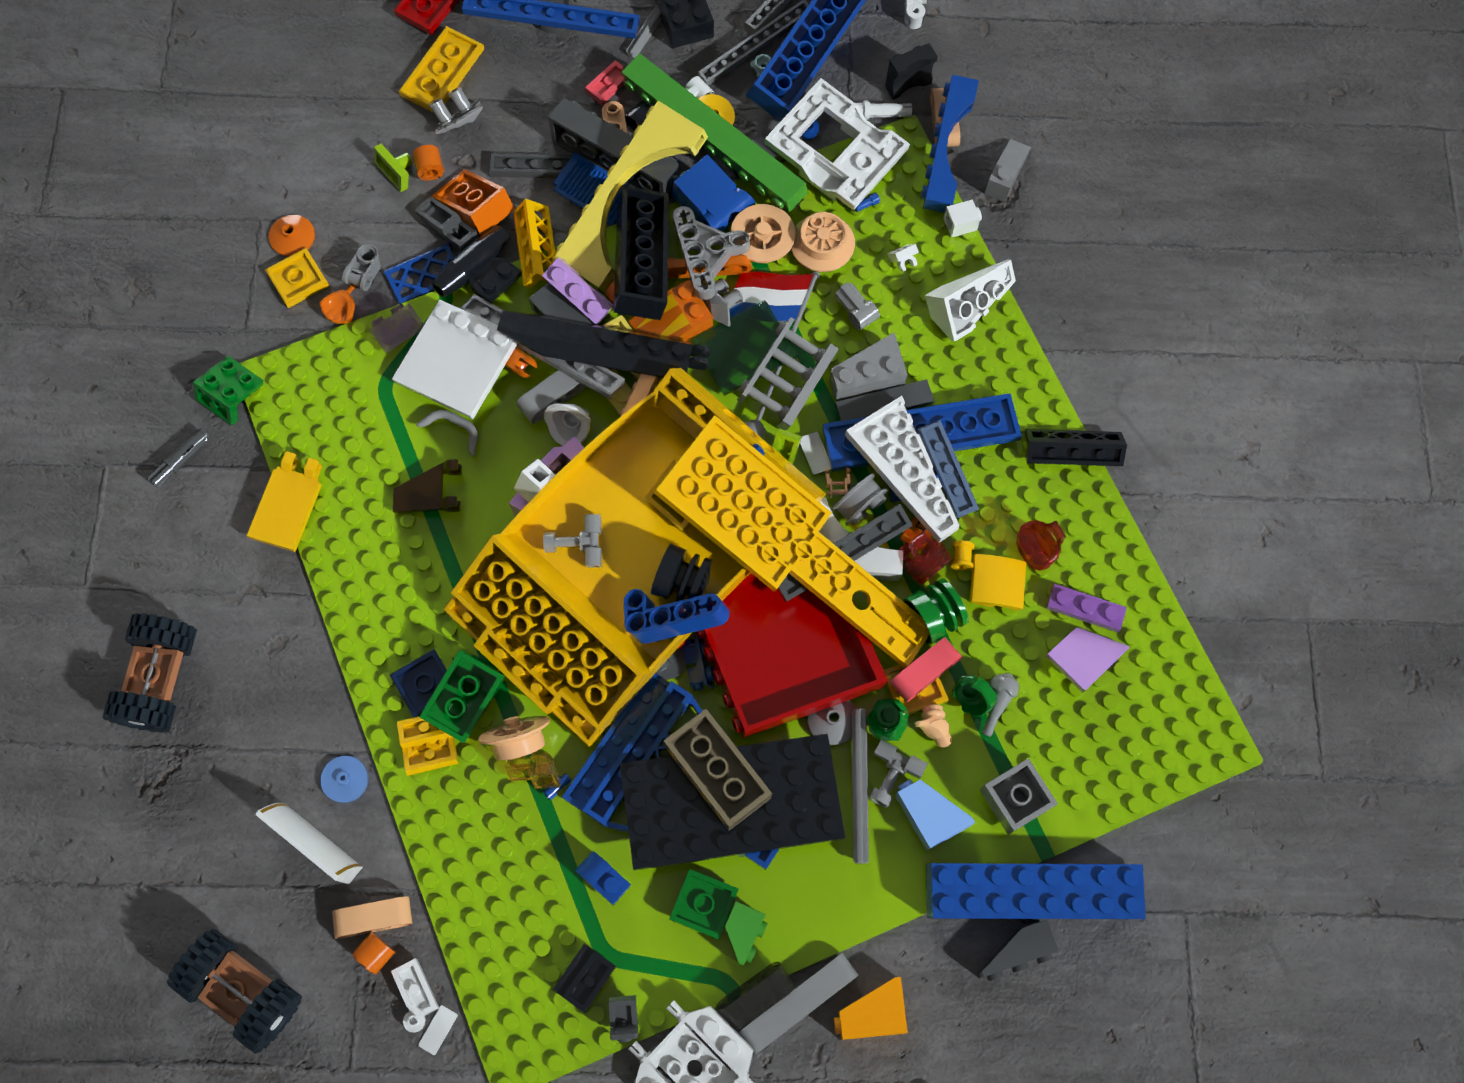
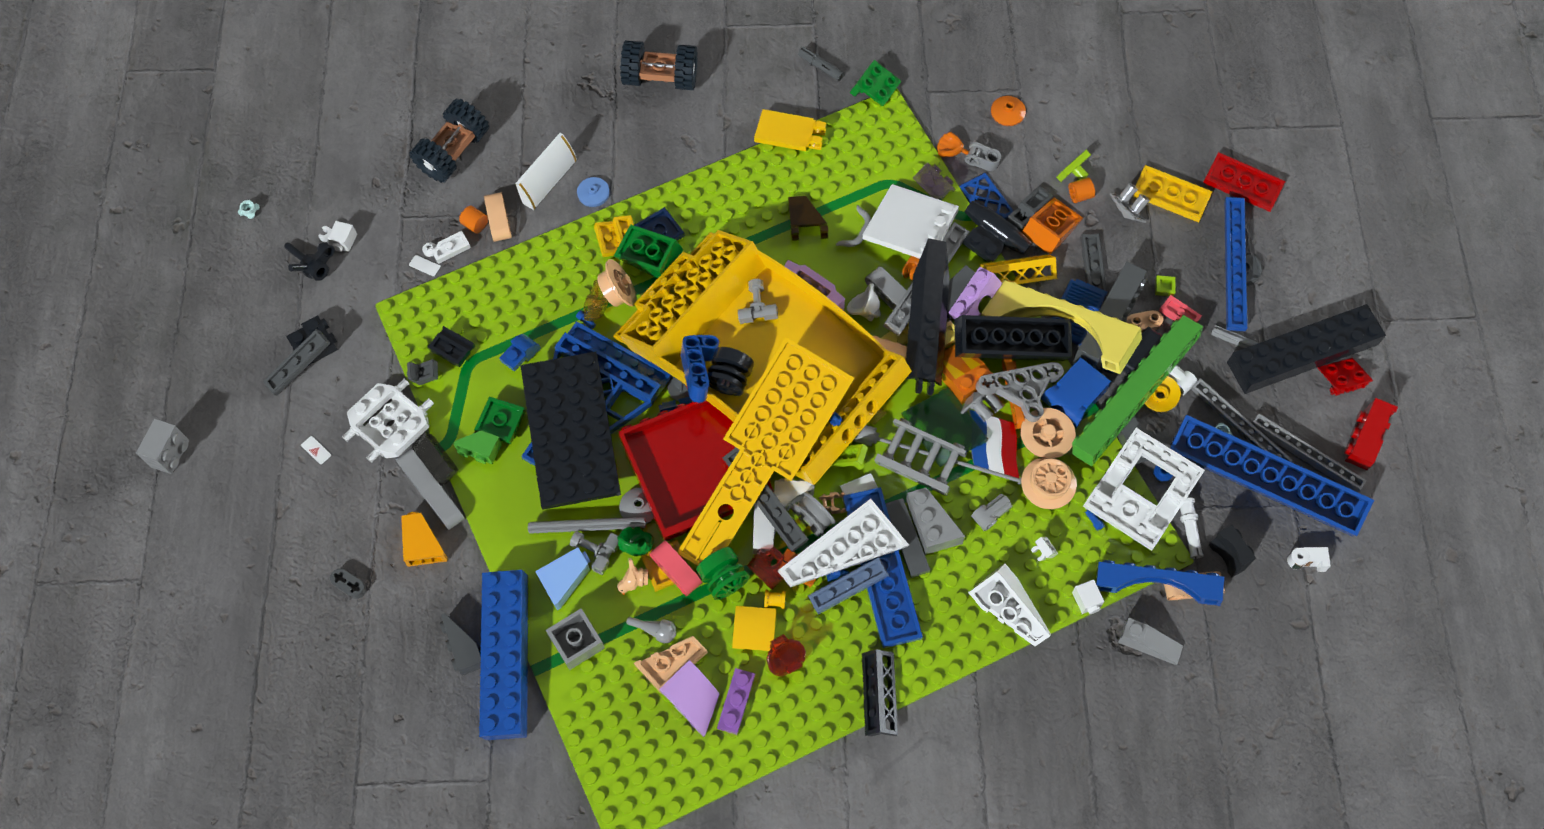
camera: 90 degrees right, 5 degrees down
(297, 277) = (972, 117): yellow tile -> none
(533, 480) = (802, 267): white brick -> none
(570, 90) = (1164, 285): none -> lime plate
(717, 769) = (586, 408): dark tan brick -> none
(974, 695) = (658, 607): green hair -> none
(1042, 681) = (664, 665): none -> light nougat wing

